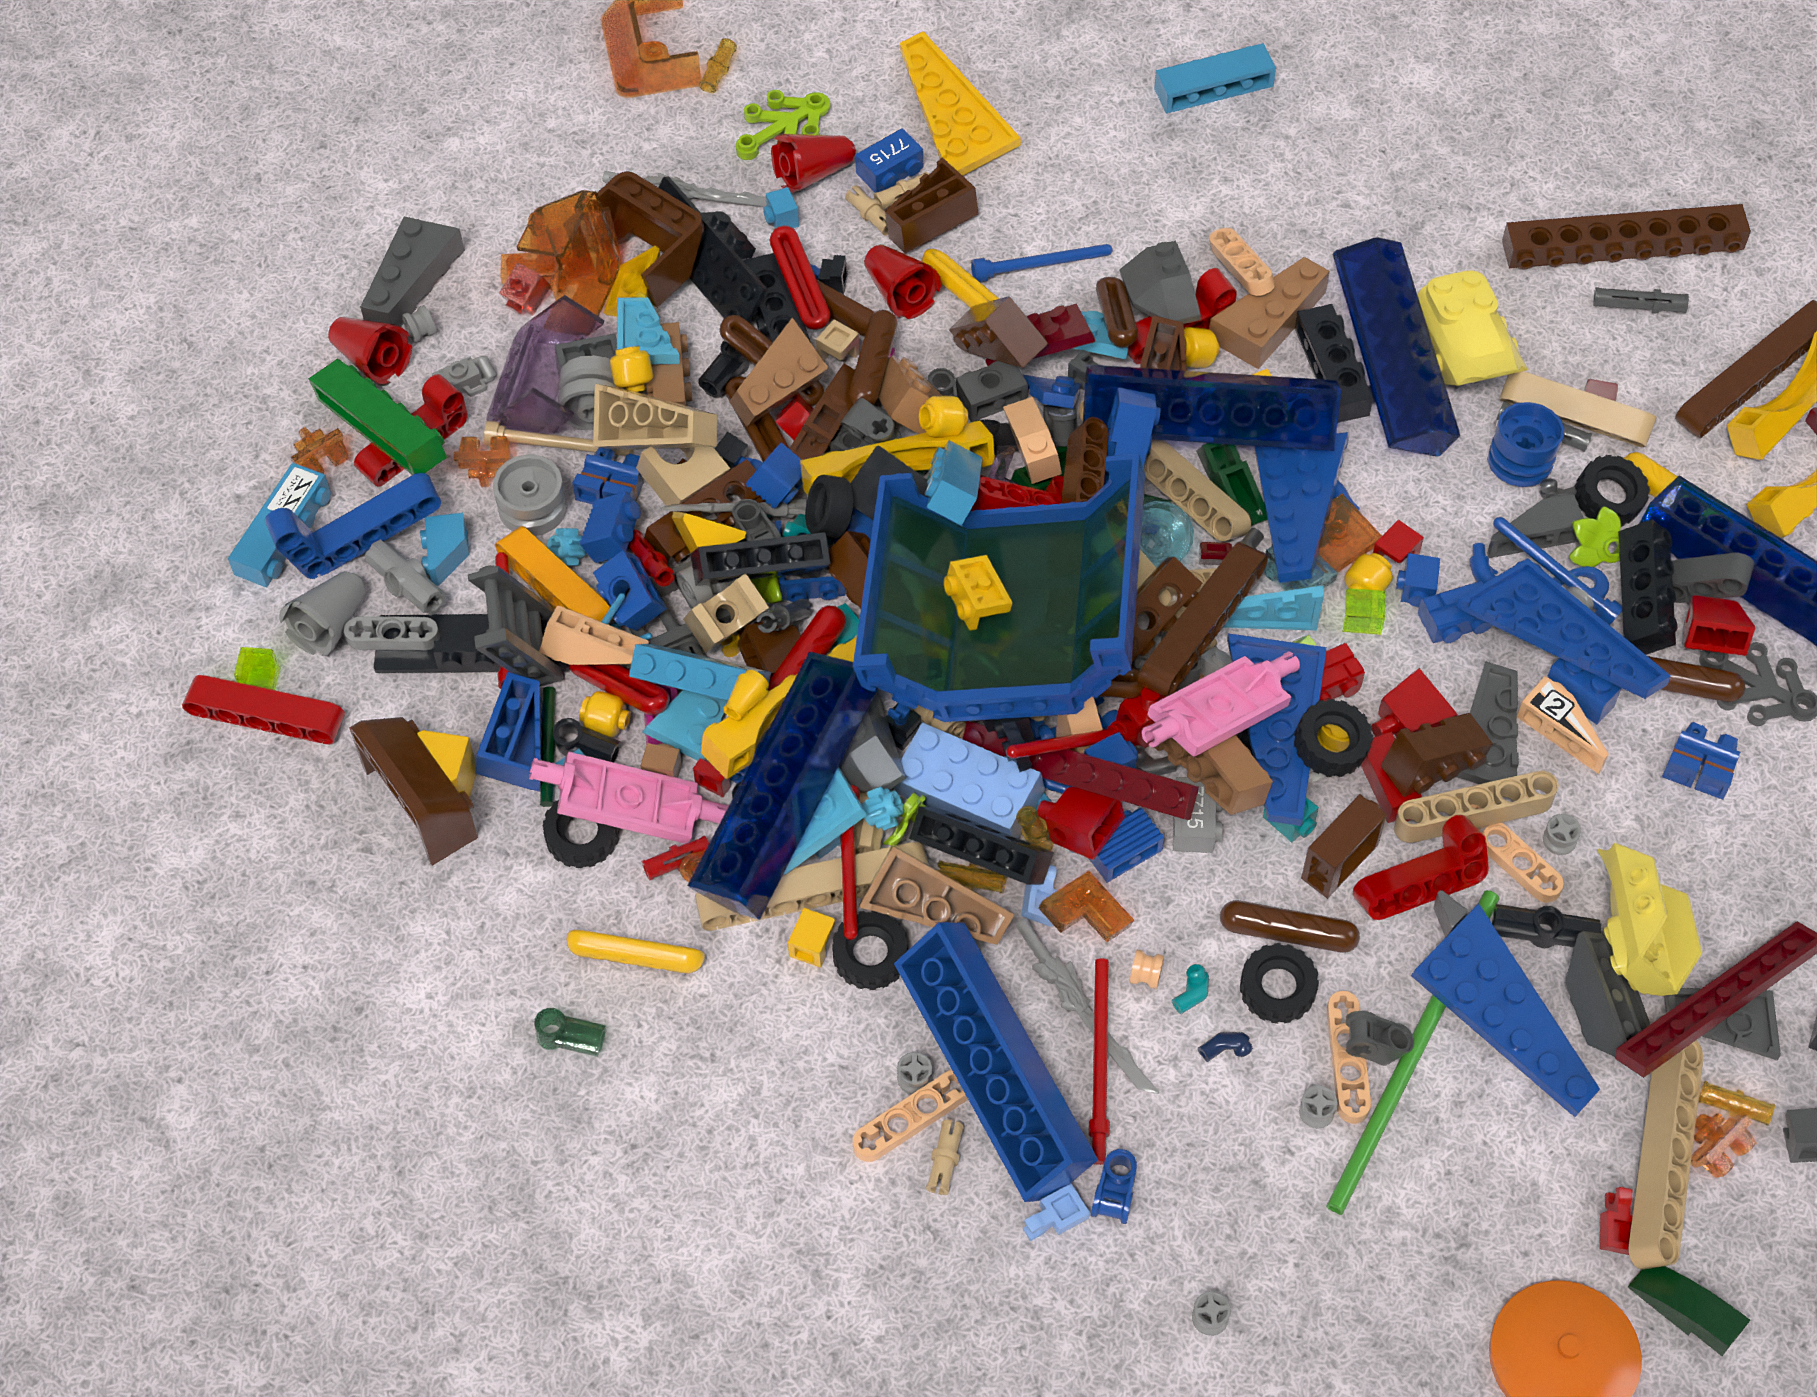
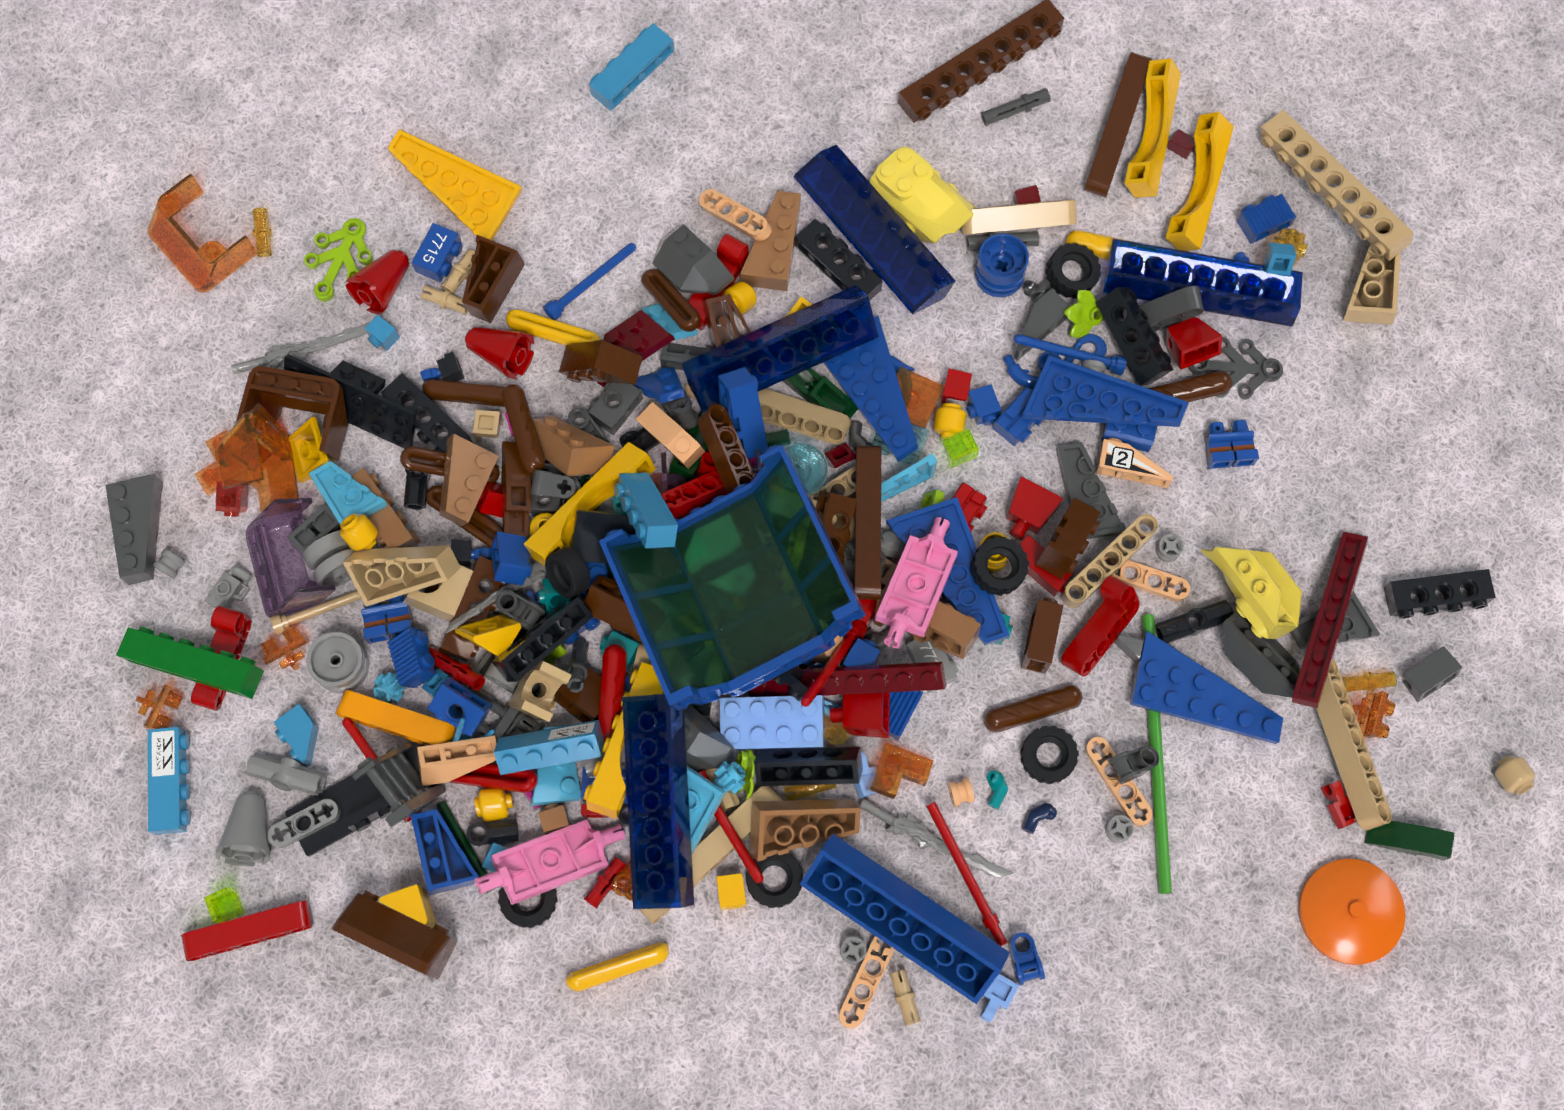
camera: 30 degrees left, 15 degrees up
(355, 531) = (228, 761): blue beam -> none
(372, 347) = (145, 603): red cone -> none
(572, 1033) = (613, 1050): clear green piece -> none
(746, 693) = (599, 754): yellow cone -> none
(799, 277) = (432, 388): red piece -> none
(943, 416) = (605, 457): yellow head -> none
(976, 590) = (711, 589): yellow bracket -> none
(1211, 1304) = (1134, 1008): light grey wheel -> none

